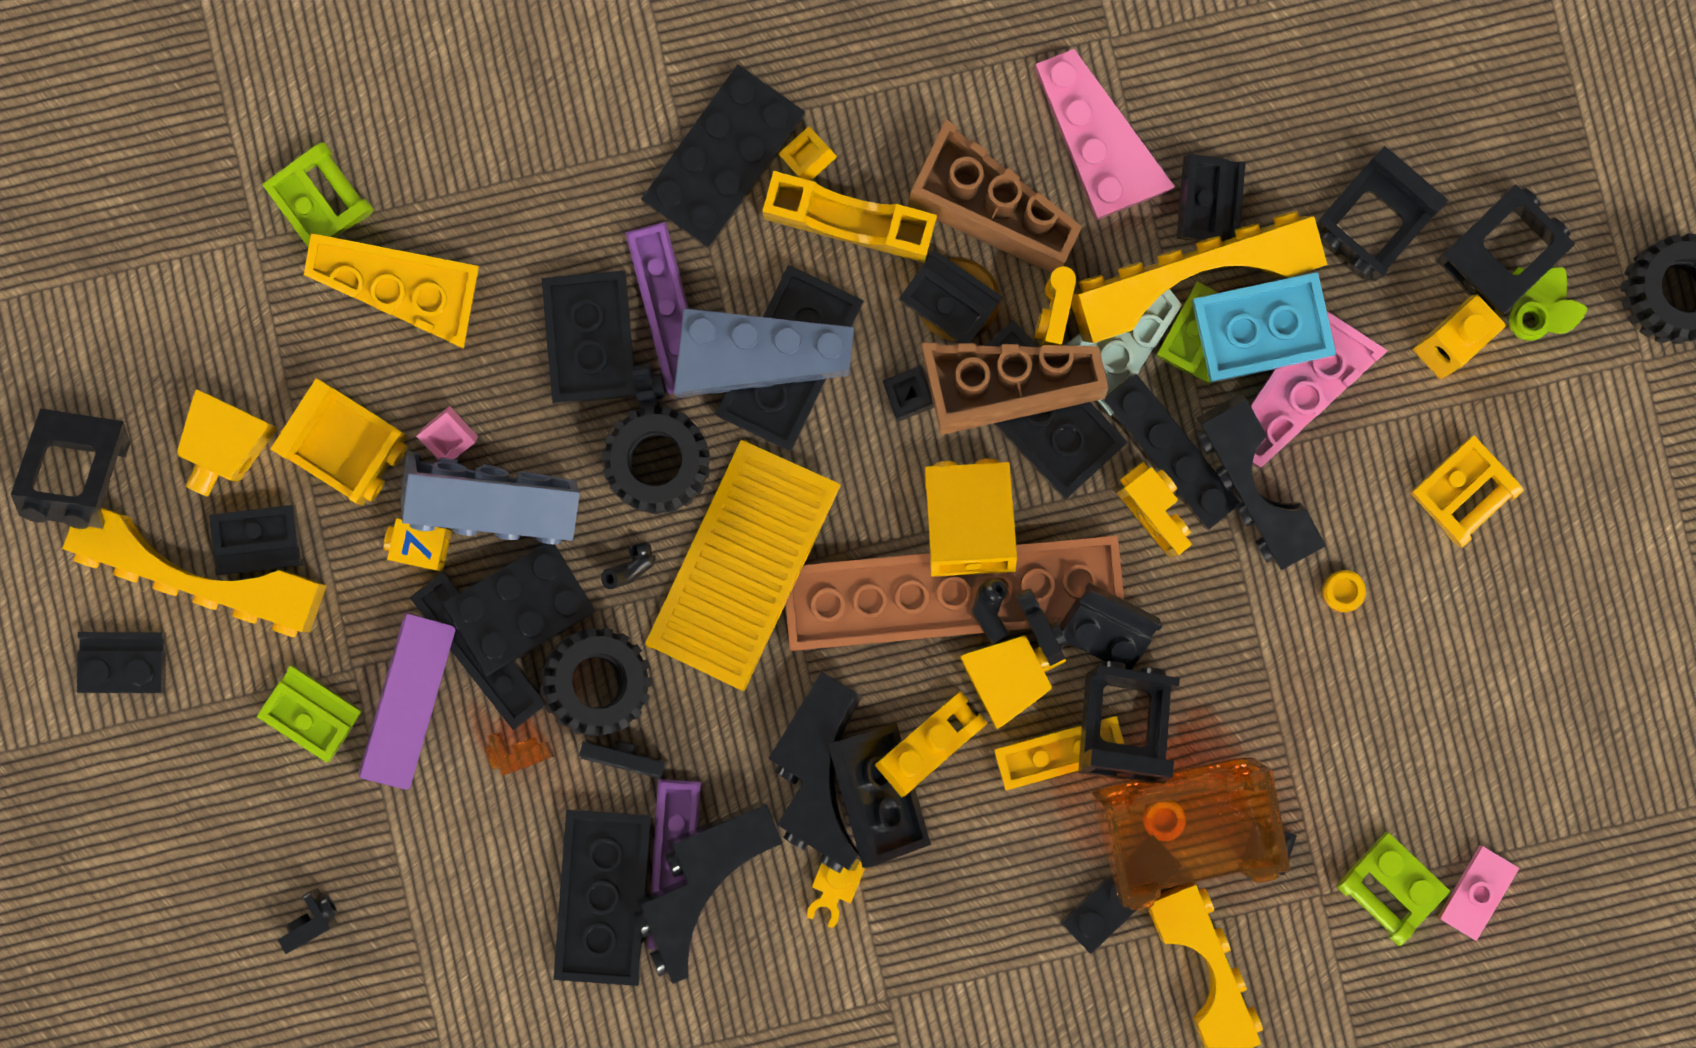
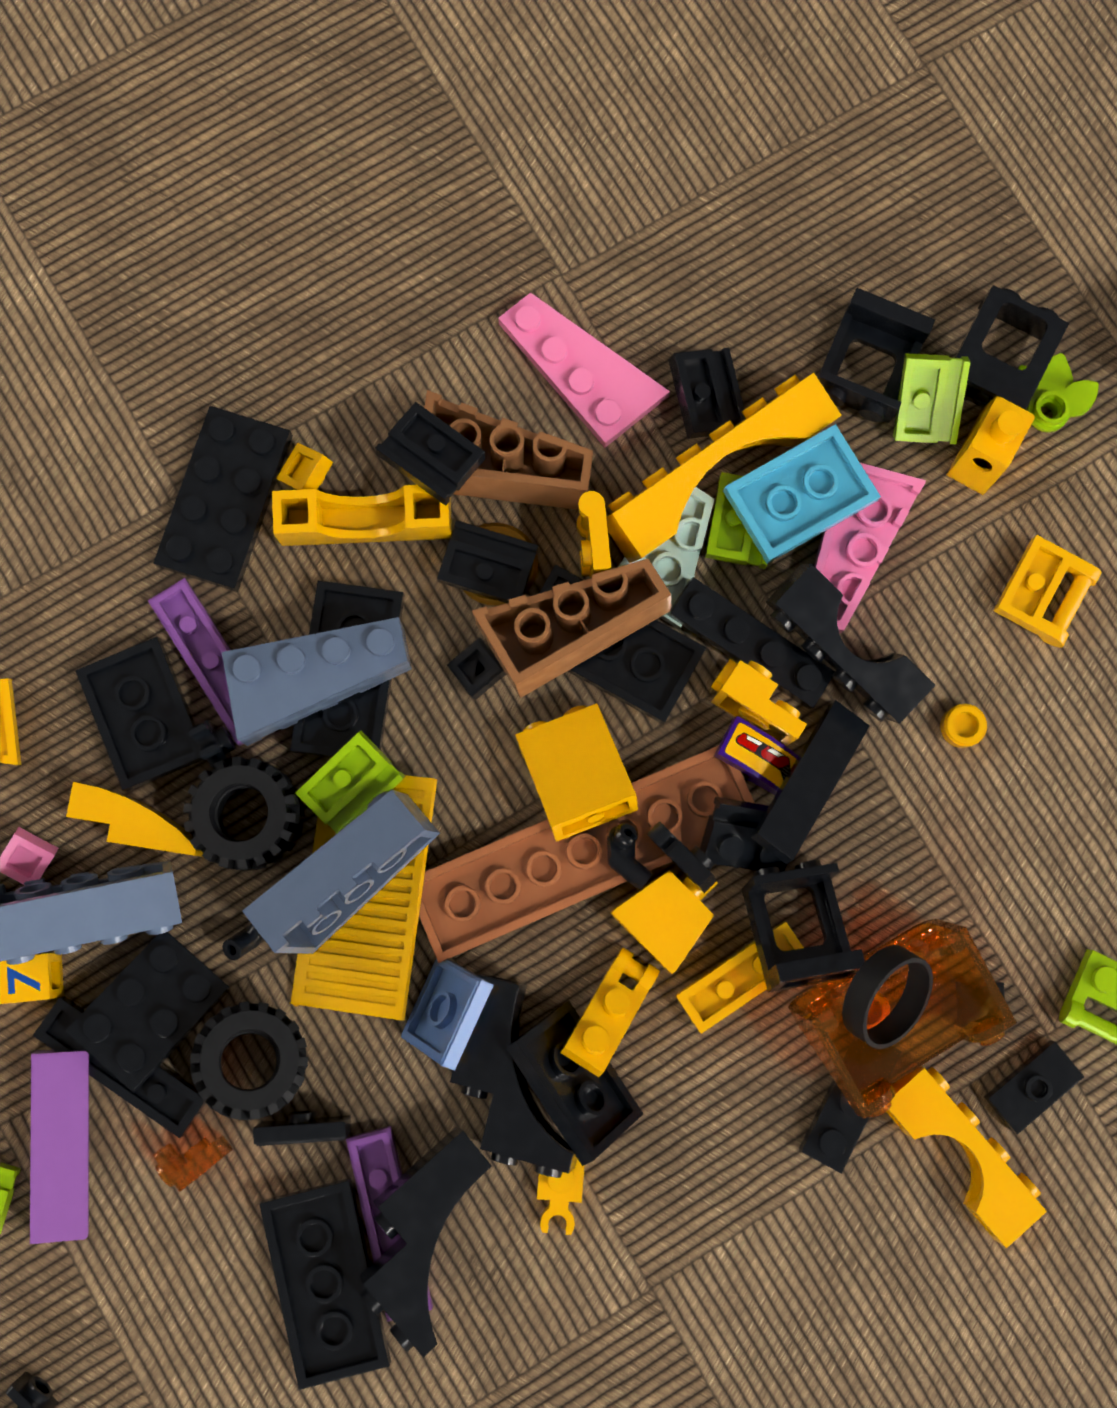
camera: 25 degrees left, 5 degrees down
(552, 433) = (129, 820): none -> yellow slope
(731, 544) = (341, 875): none -> sand blue wedge
(760, 464) = (349, 782): none -> lime plate
(784, 696) = (446, 1012): none -> medium blue tile
(930, 183) = (430, 453): none -> black plate
(1144, 560) = (756, 754): none -> slope
(1165, 791) = (868, 982): none -> black tyre
(1181, 596) = (810, 782): none -> black tile
(1292, 936) = (1034, 1087): none -> black plate
(1418, 274) = (931, 398): none -> lime plate

